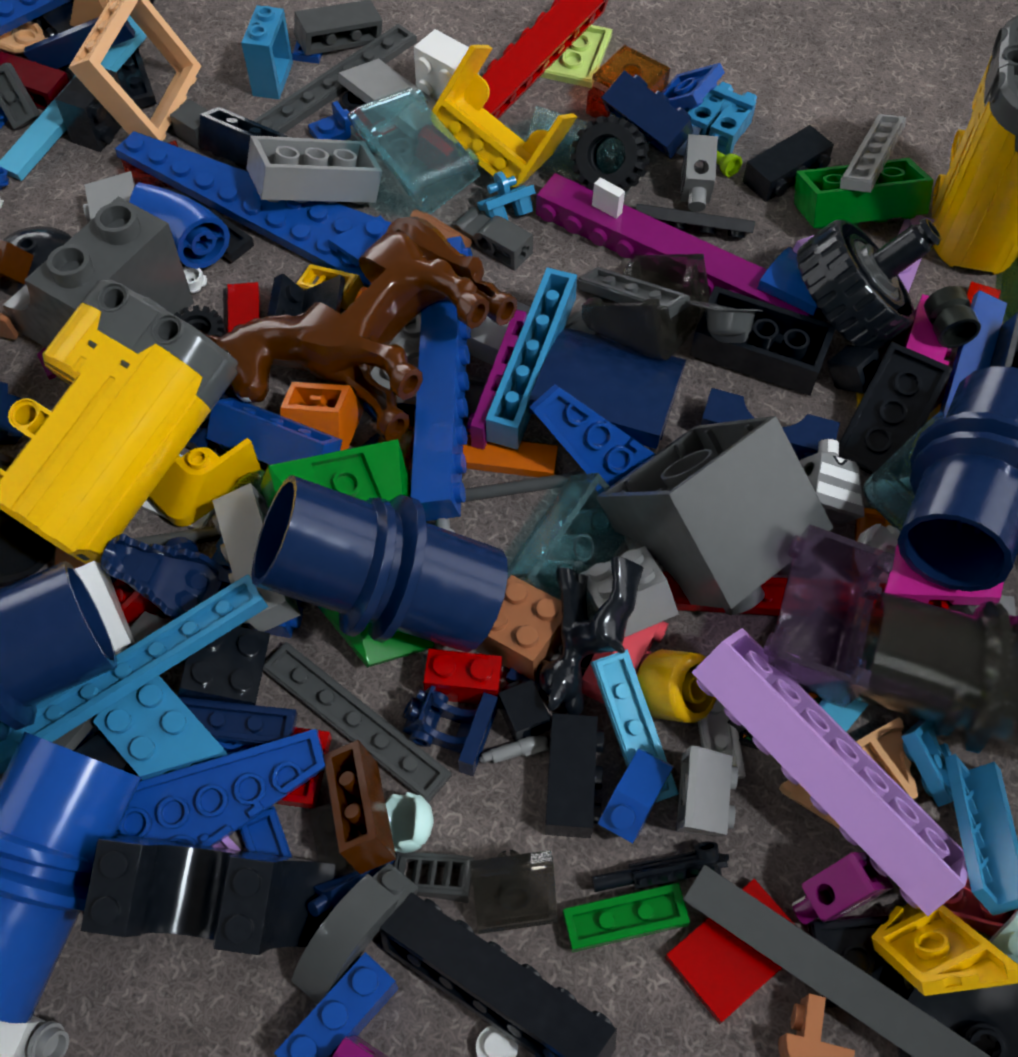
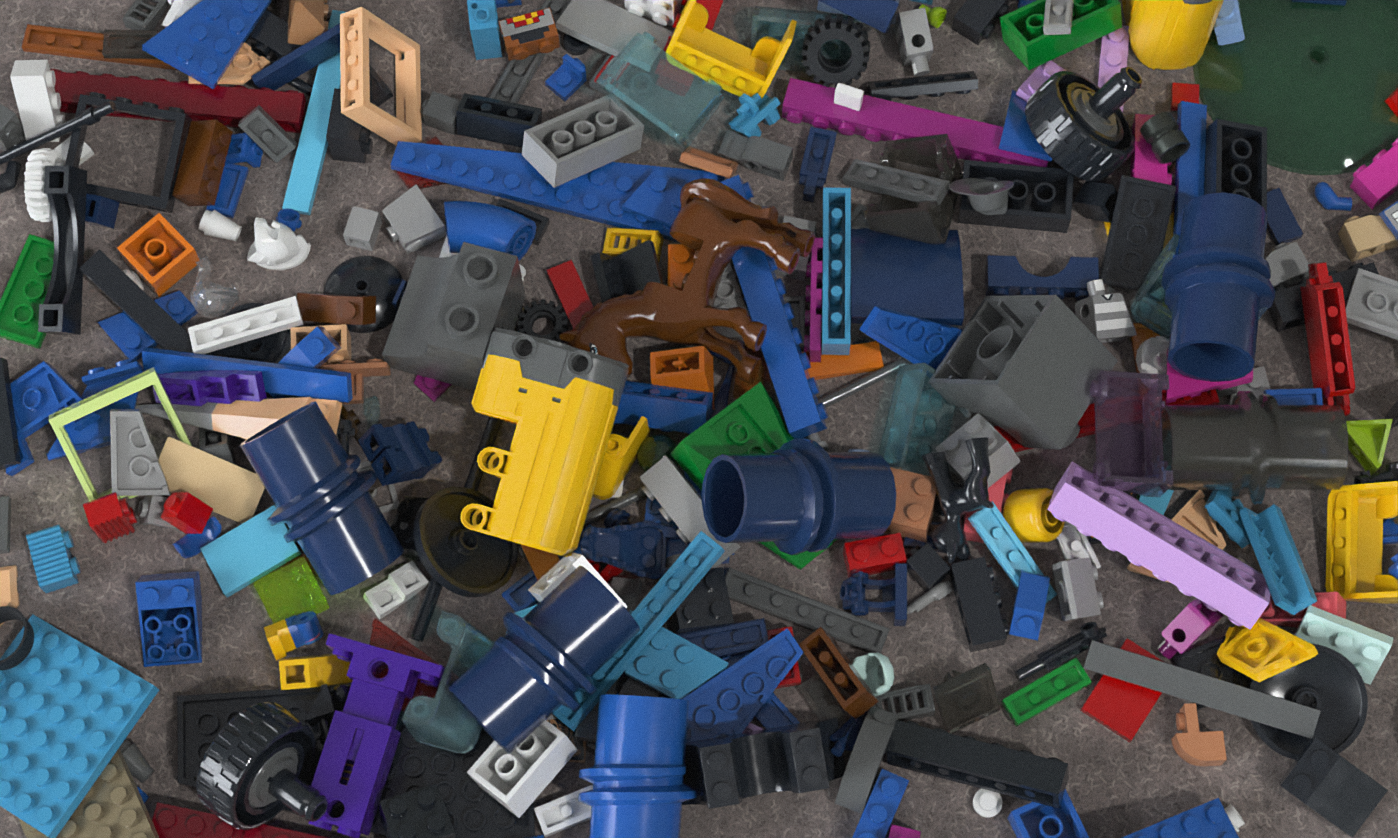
camera: 15 degrees left, 10 degrees up
(61, 200) = (362, 228): none -> light grey panel
(308, 77) = (529, 34): none -> brick
(556, 254) = (816, 161): none -> dark blue hinge

